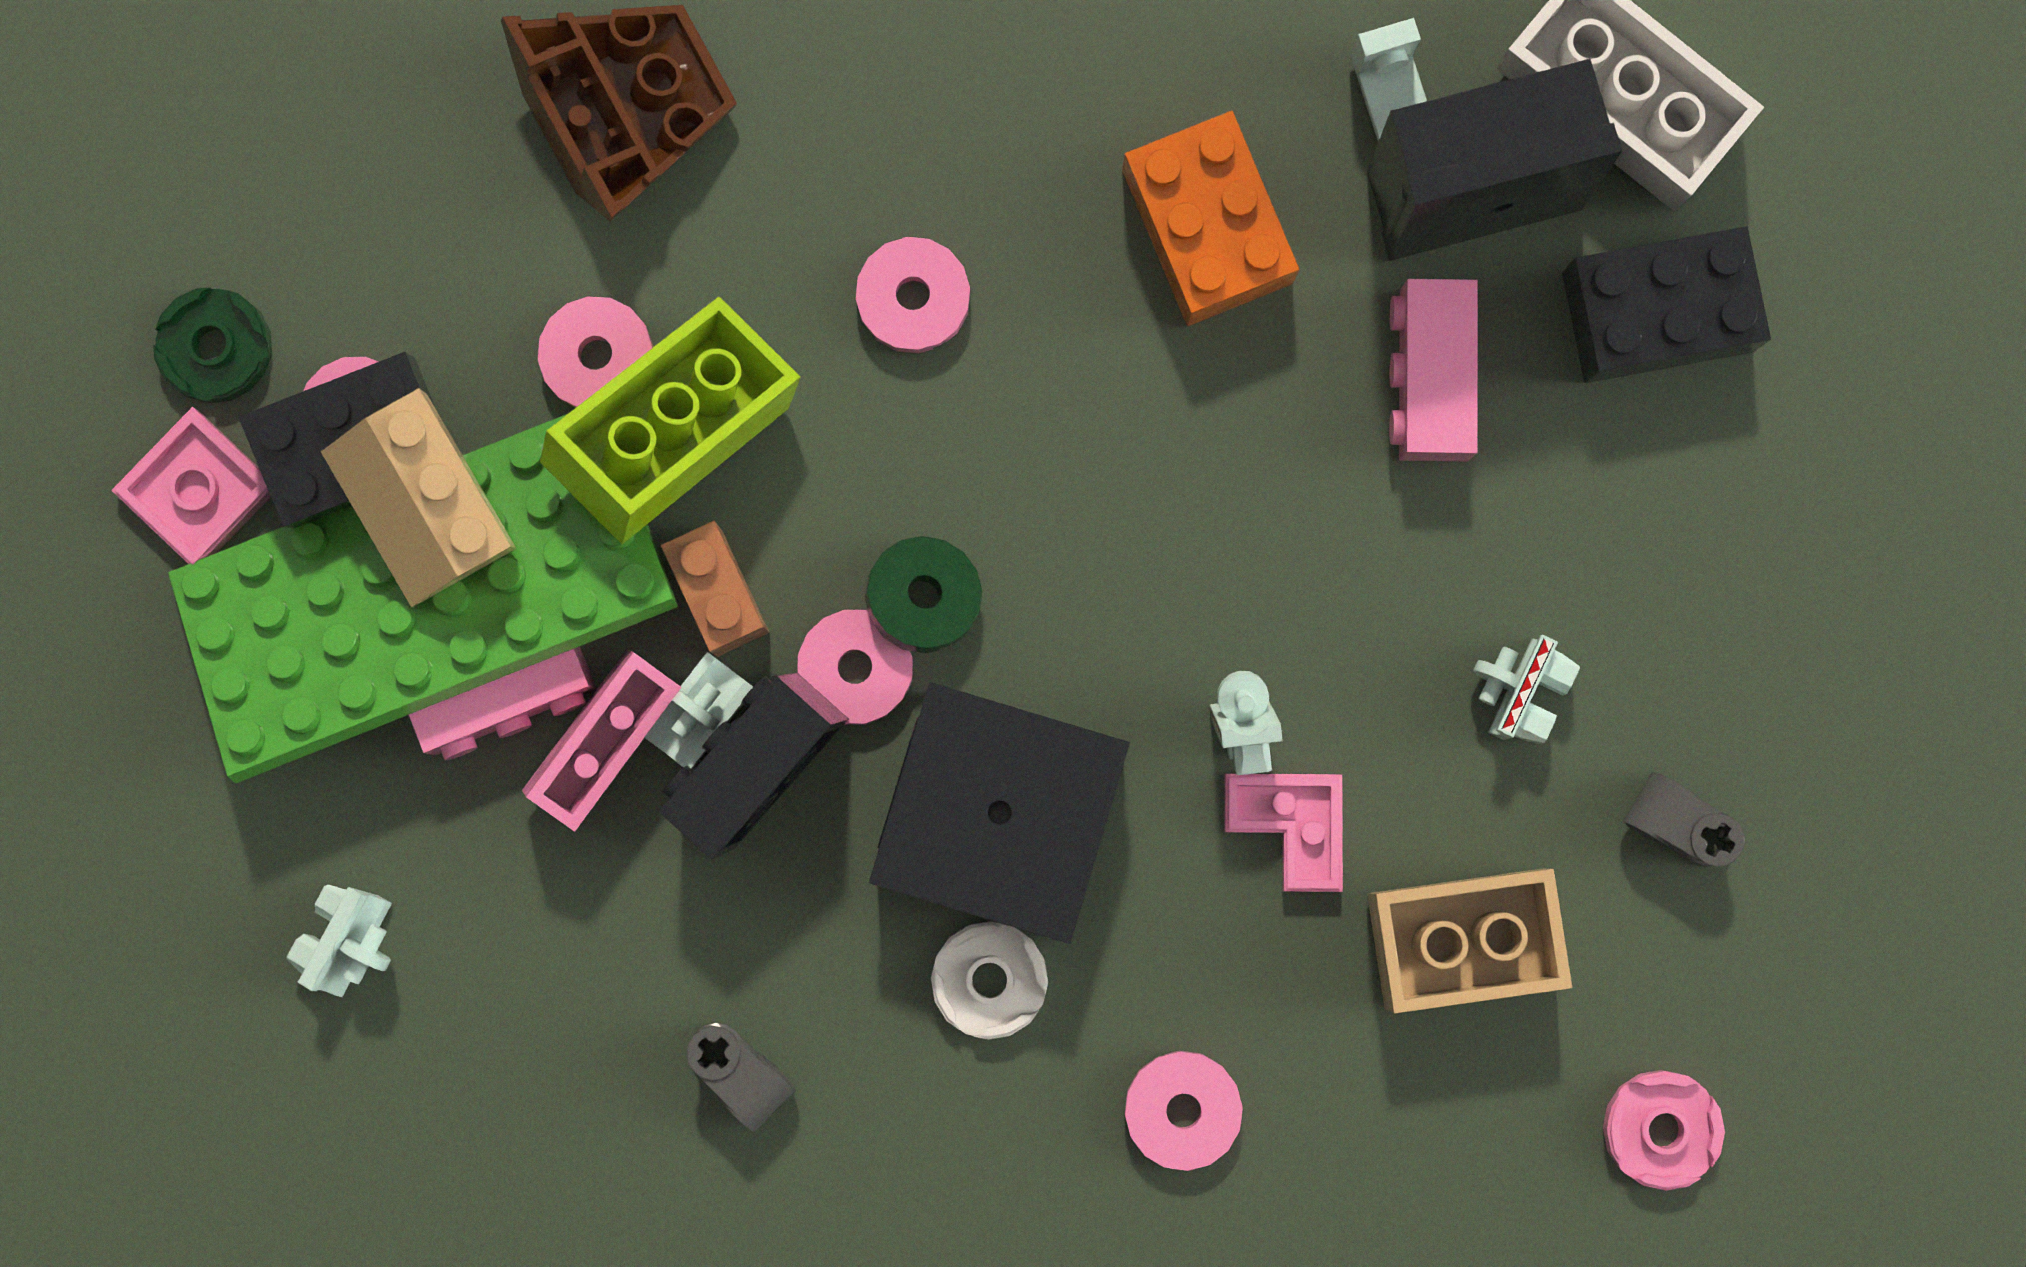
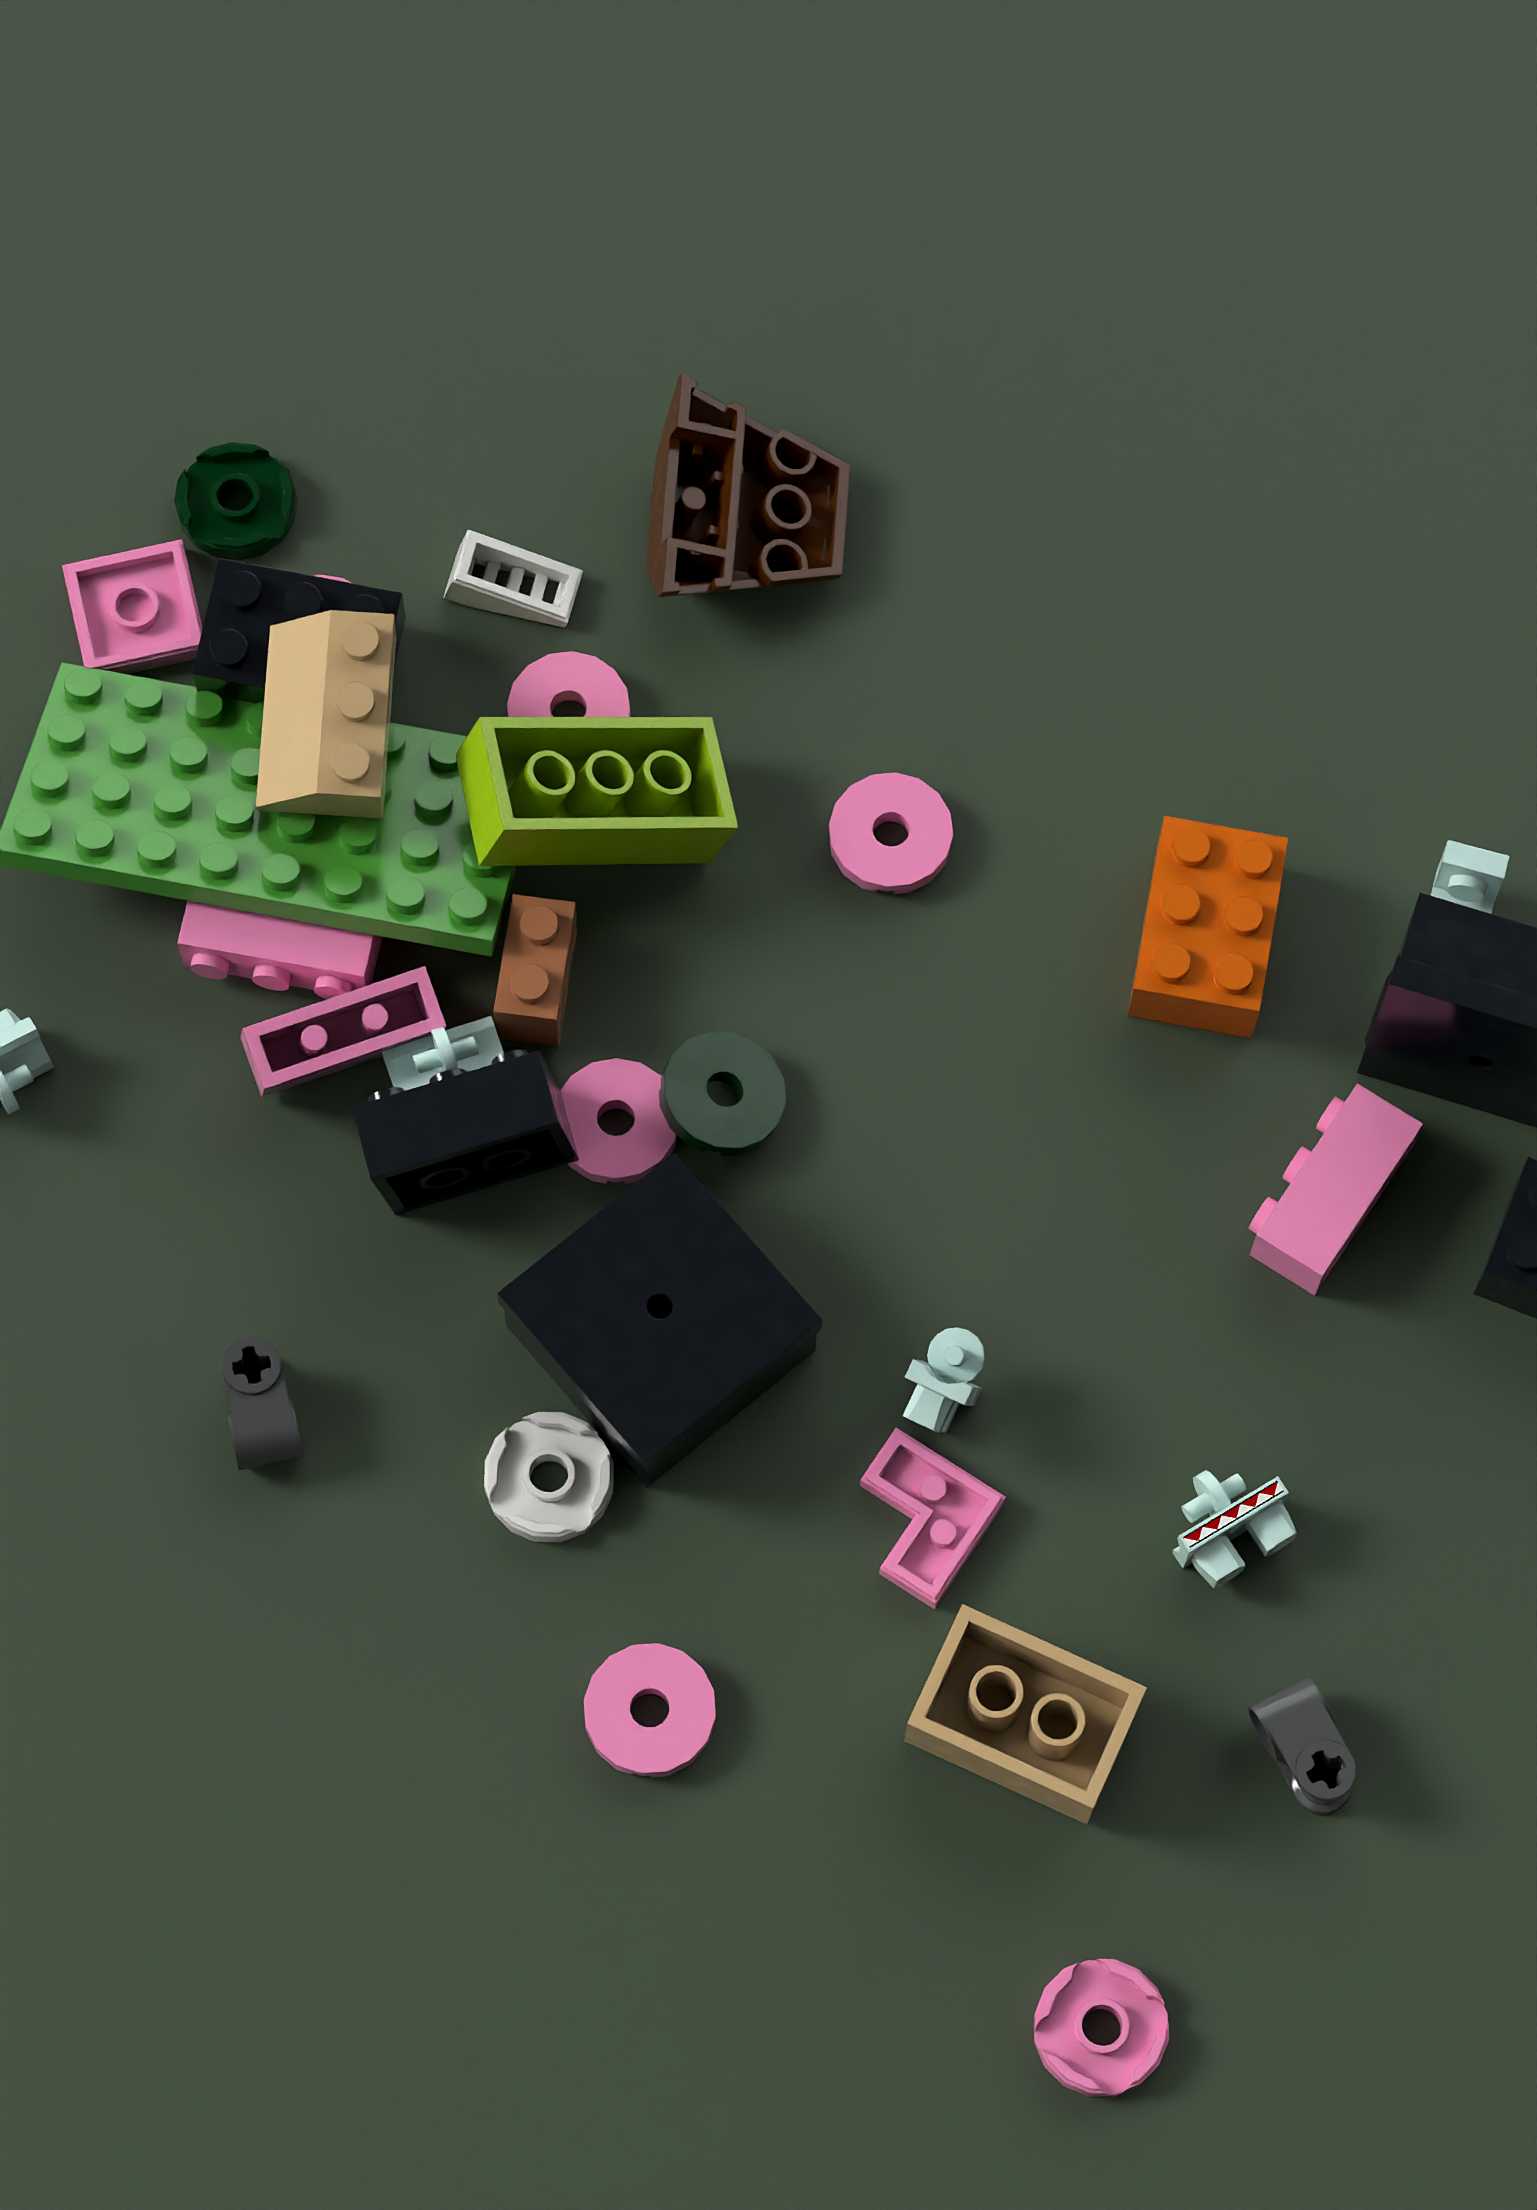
camera: 30 degrees right, 15 degrees down
(473, 254) = (507, 600): none -> white slope

